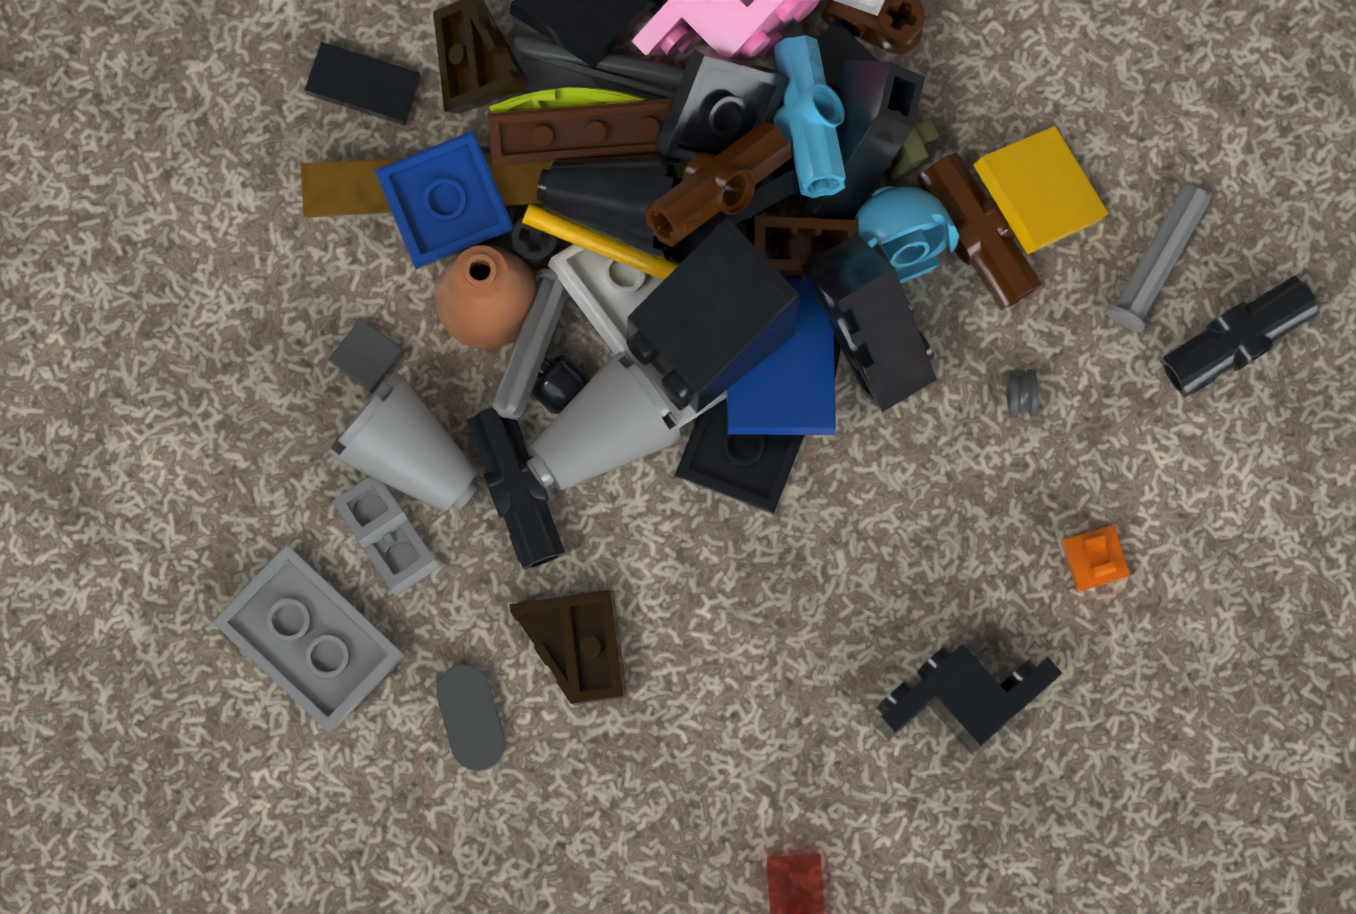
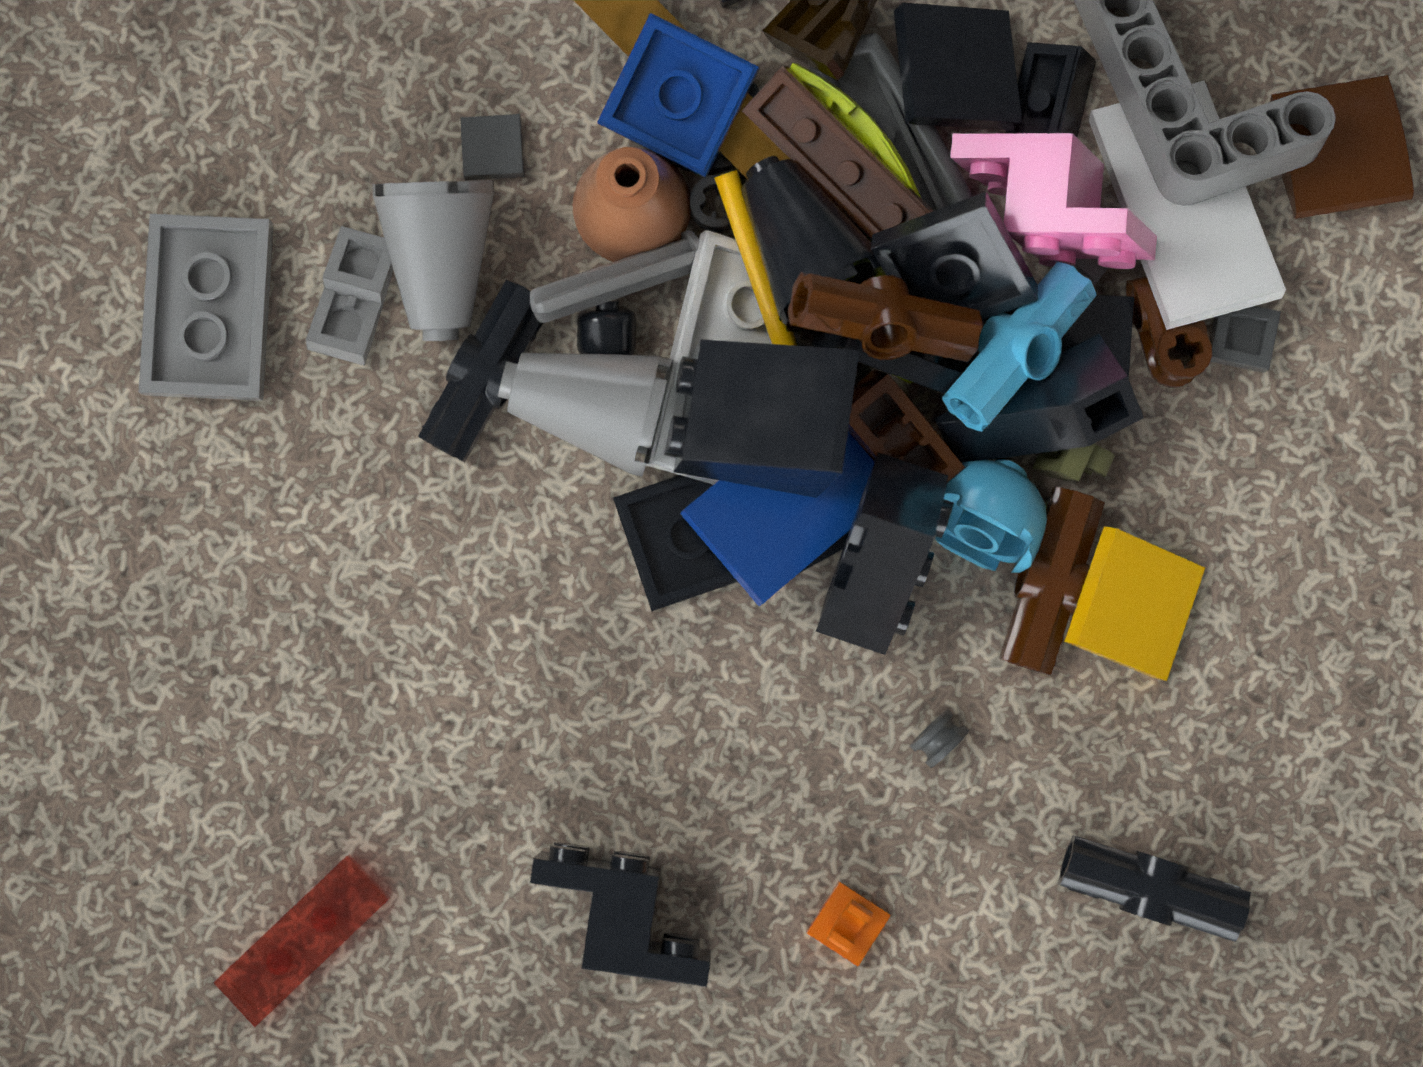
camera: 50 degrees right, 5 degrees up
(470, 718) = (256, 502): dark grey tile -> none
(578, 643) = (394, 540): dark brown wing -> none
(1159, 258) = (1165, 758): light grey axle -> none

